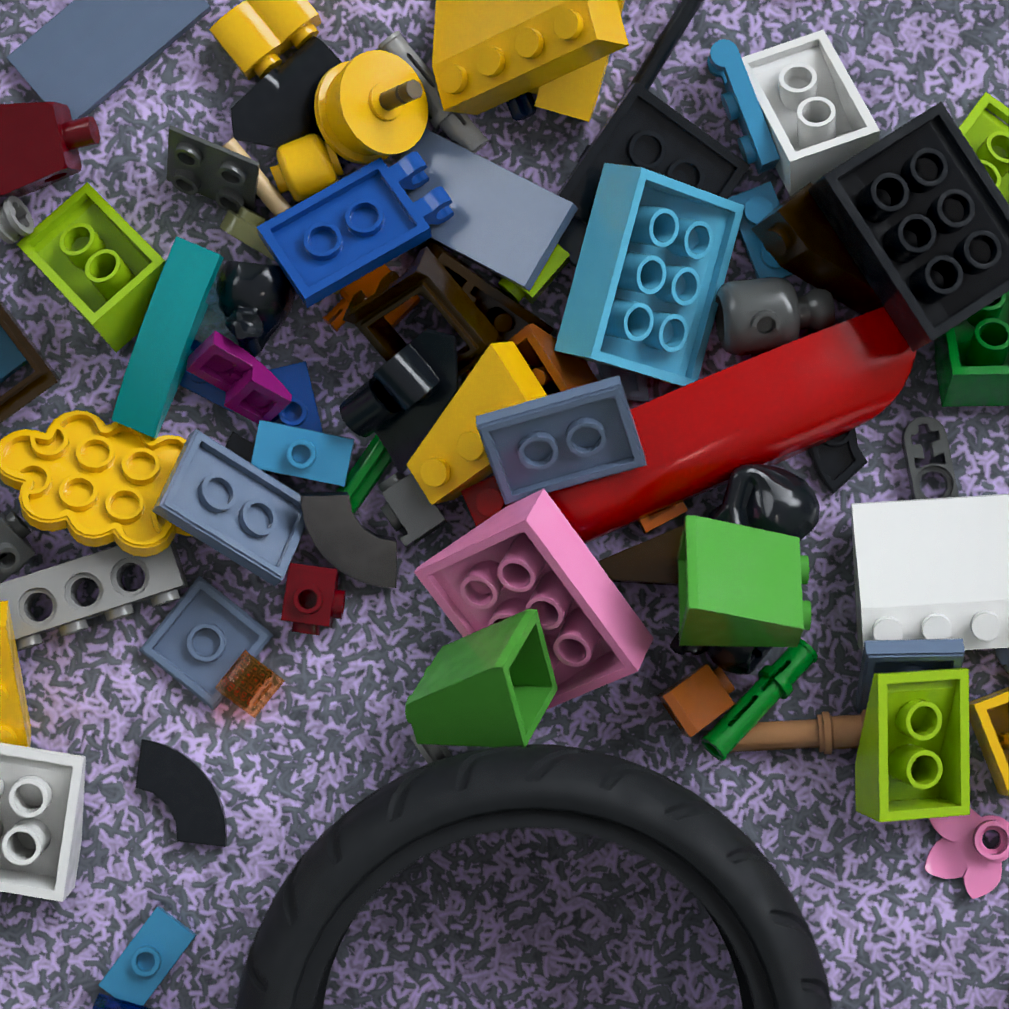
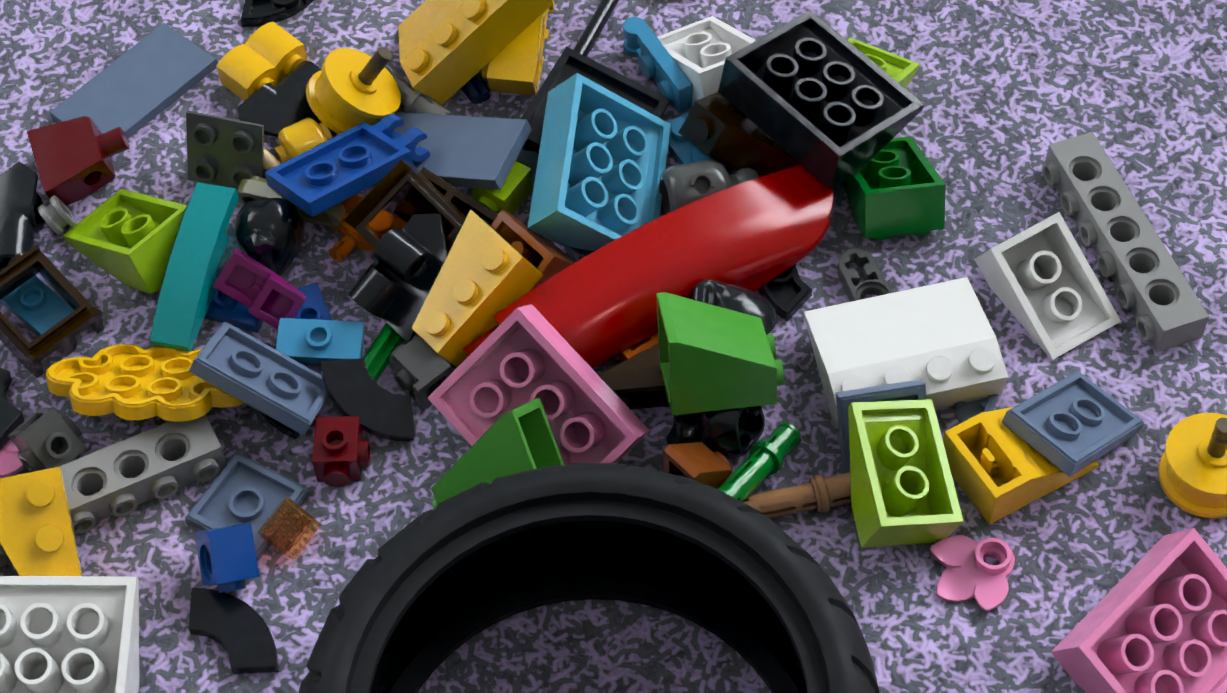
camera: 10 degrees left, 30 degrees down
(181, 718) = (227, 556): none -> blue brick
(561, 439) = (542, 263): sand blue tile -> none

